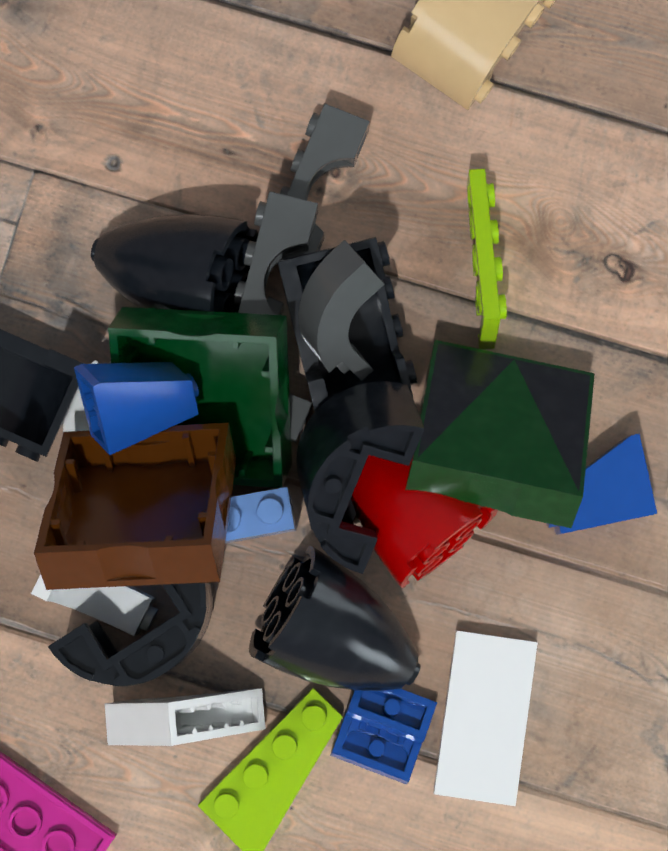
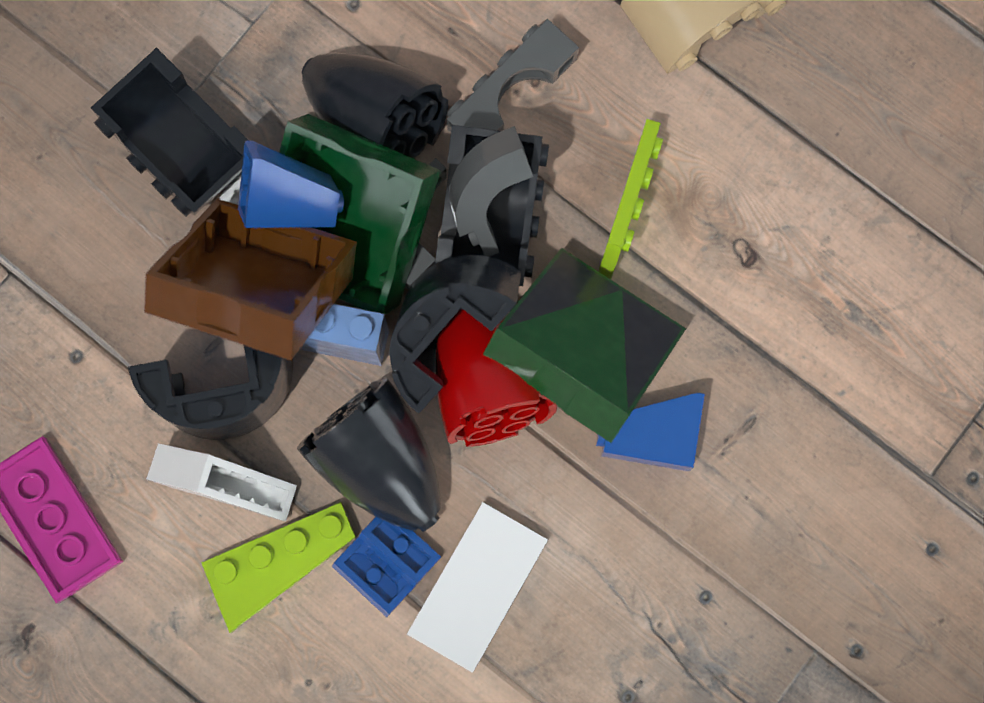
camera: 20 degrees right, 5 degrees down
(117, 606) = (189, 351): white arch -> none
(284, 229) = (470, 103): dark grey arch -> none

